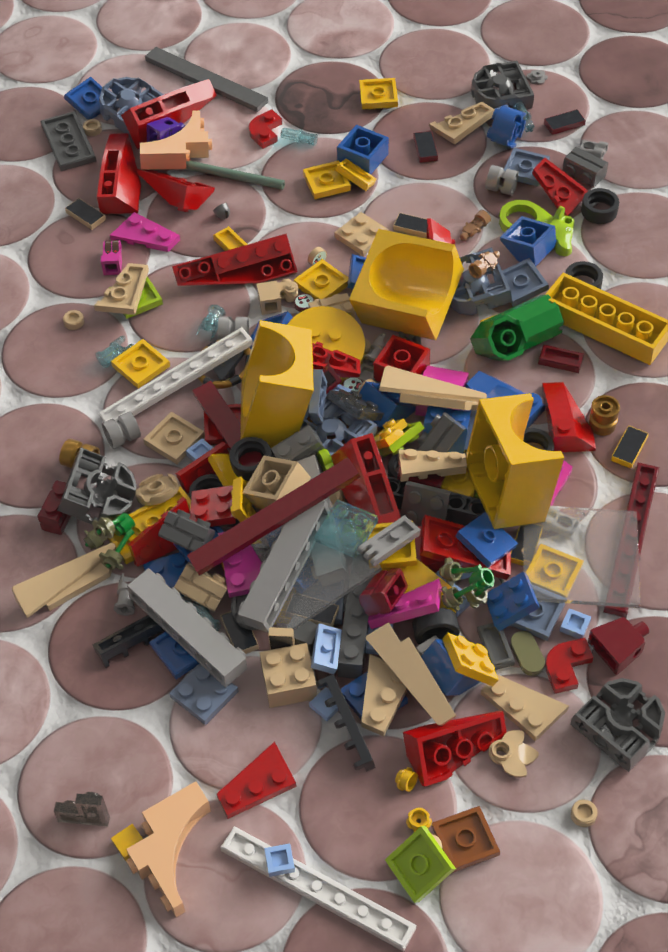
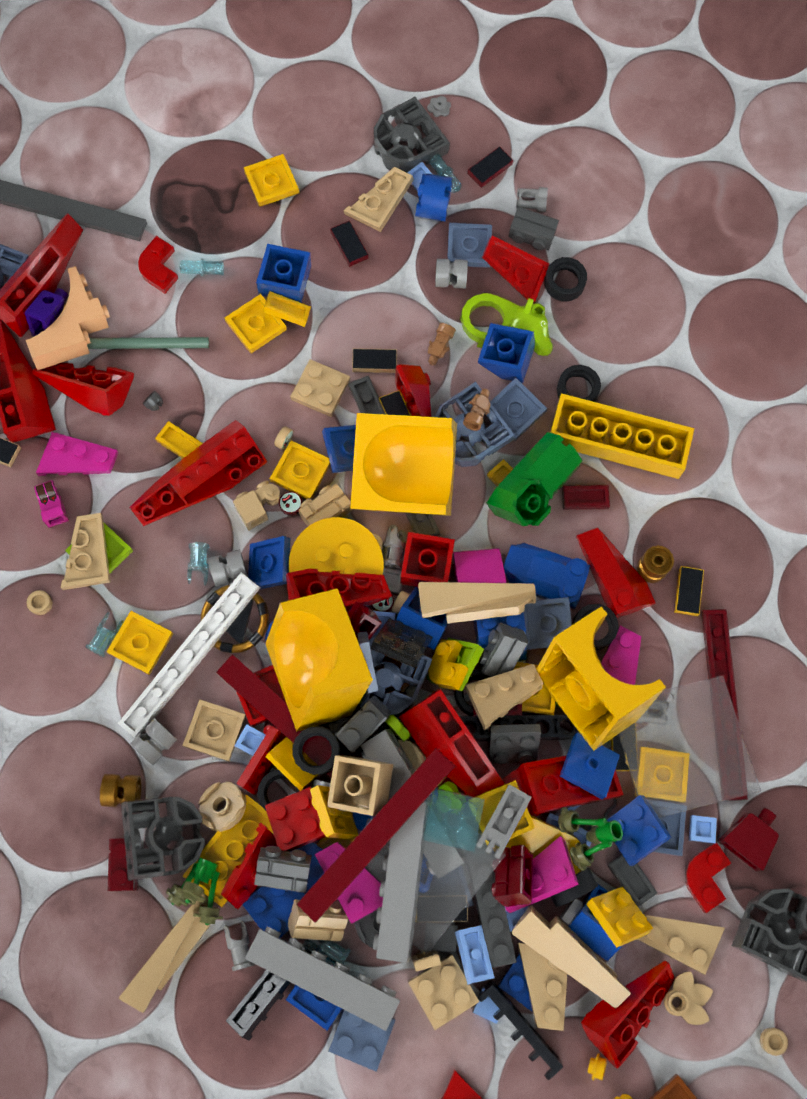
camera: 25 degrees left, 20 degrees up
(238, 635) = (368, 955): black tile -> none
(527, 653) = (665, 877): olive tile -> none

